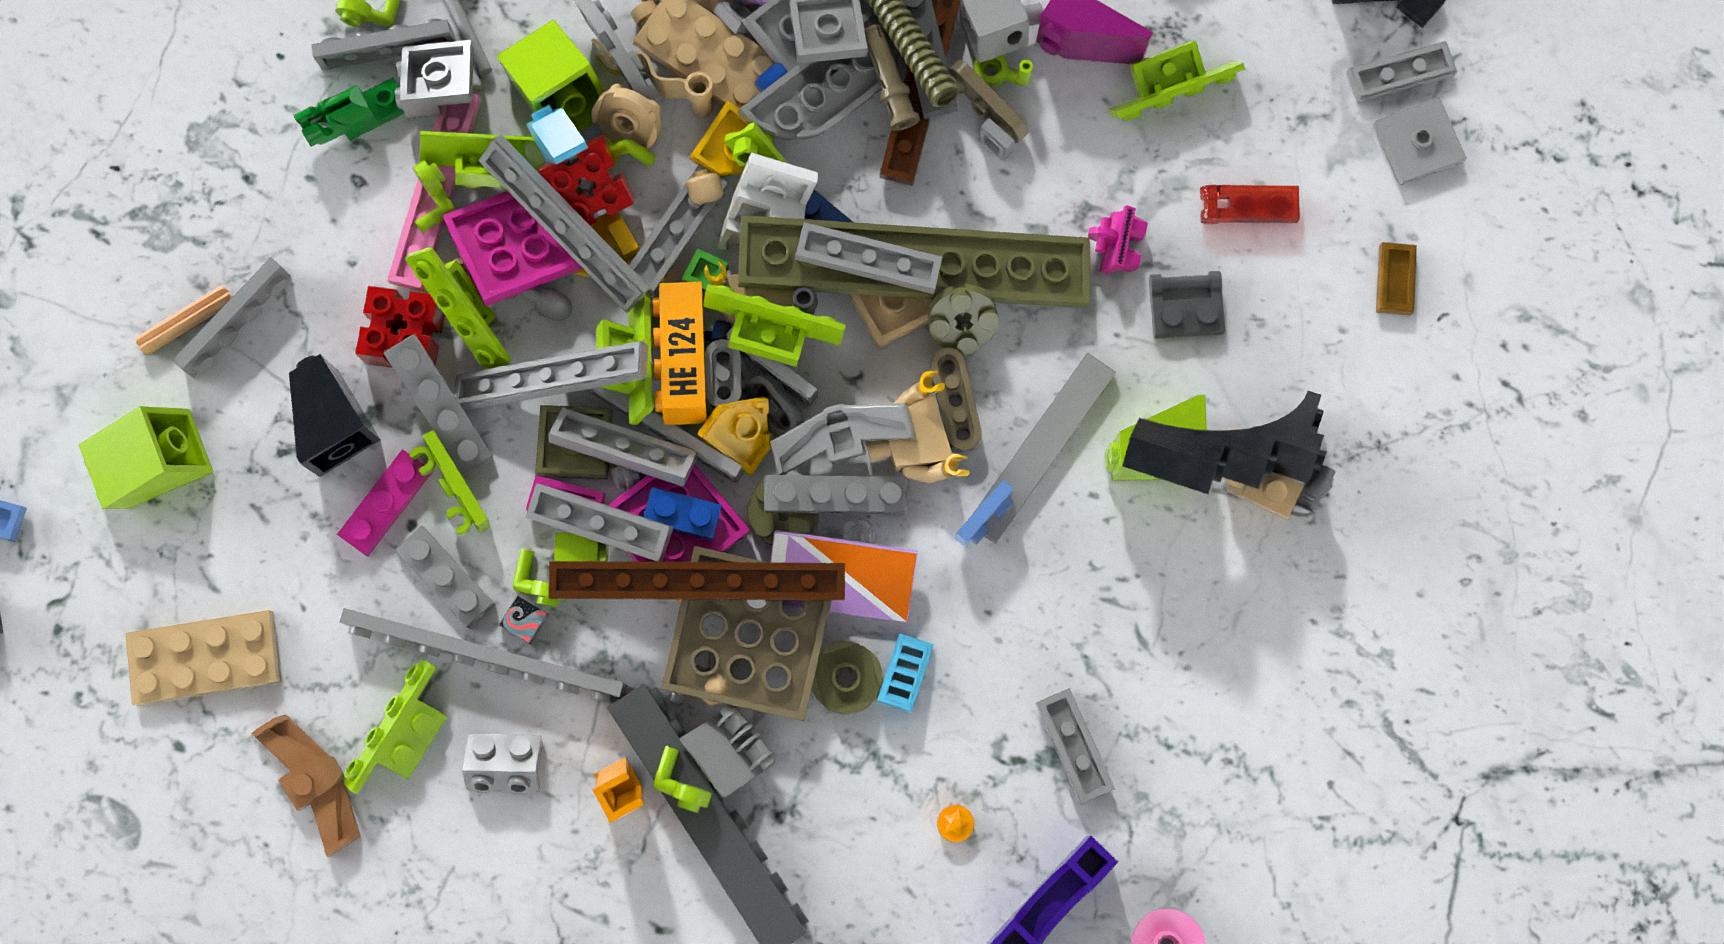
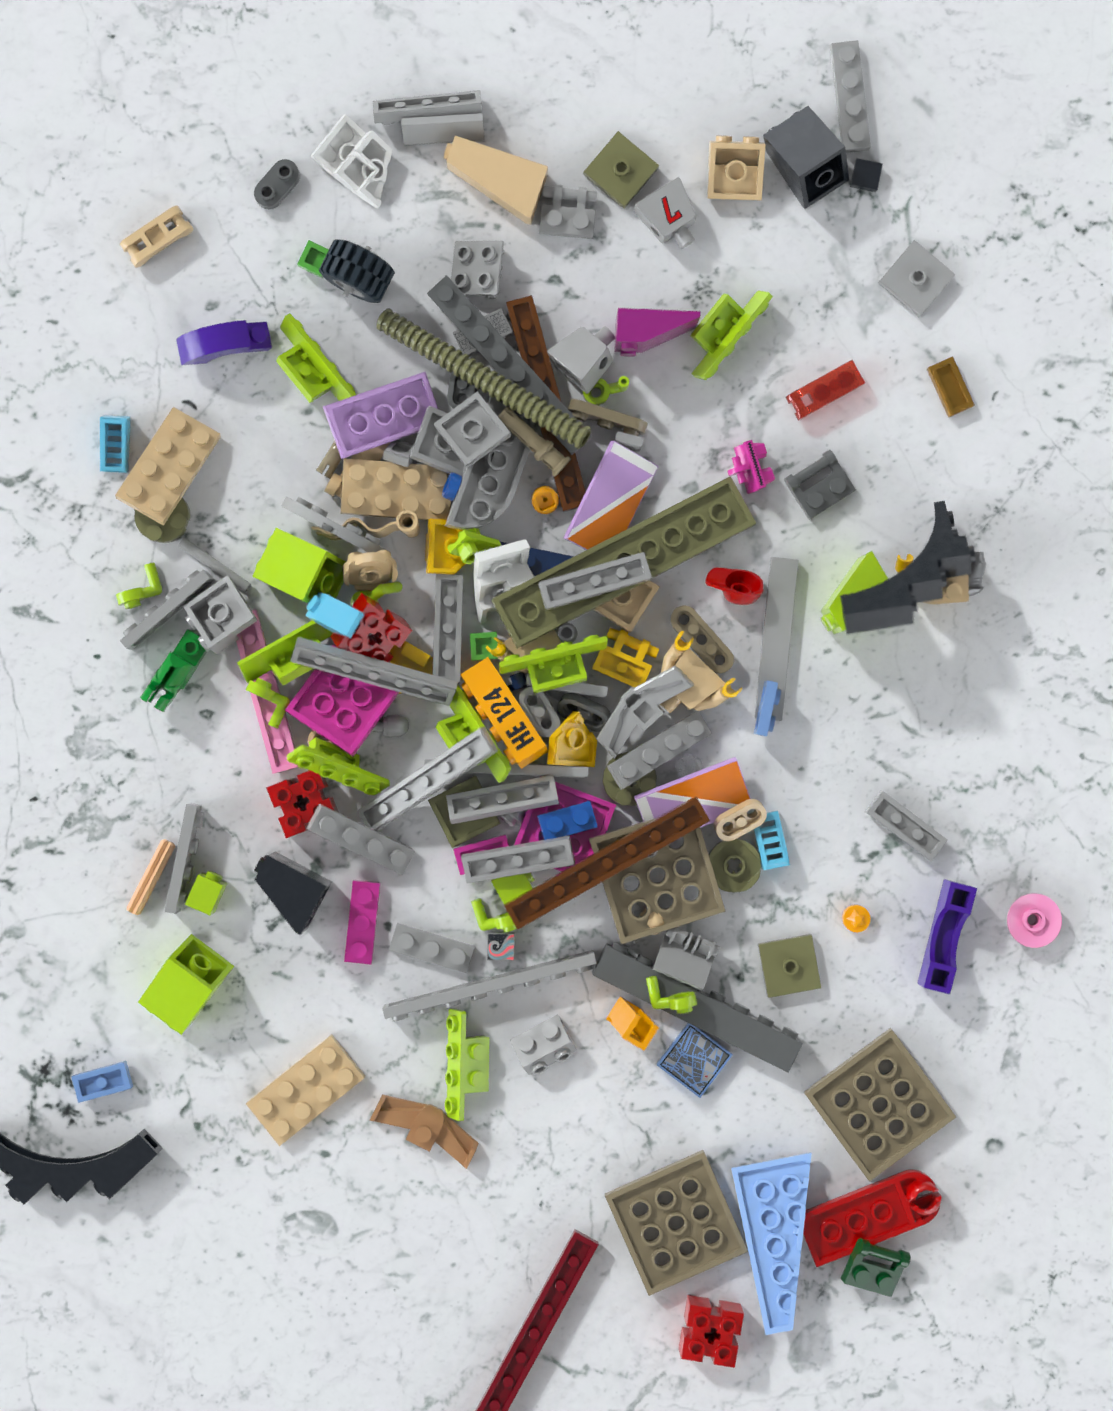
camera: 30 degrees left, 10 degrees up
(233, 369) = (206, 892): none -> lime brick
(451, 483) = (401, 886): lime plate -> none
(669, 882) = (694, 1059): none -> tile
(704, 187) = (450, 588): tan piece -> none
(844, 834) = (789, 965): none -> olive plate
(846, 378) = (622, 666): none -> yellow plate
(866, 153) = (544, 499): none -> light orange tile
(883, 630) = (740, 821): none -> tan plate
(943, 186) = (611, 497): none -> tile
(967, 336) = (686, 591): olive plate -> none
(1028, 362) = (738, 585): none -> red cap
(1401, 72) = (878, 233): light grey tile -> none

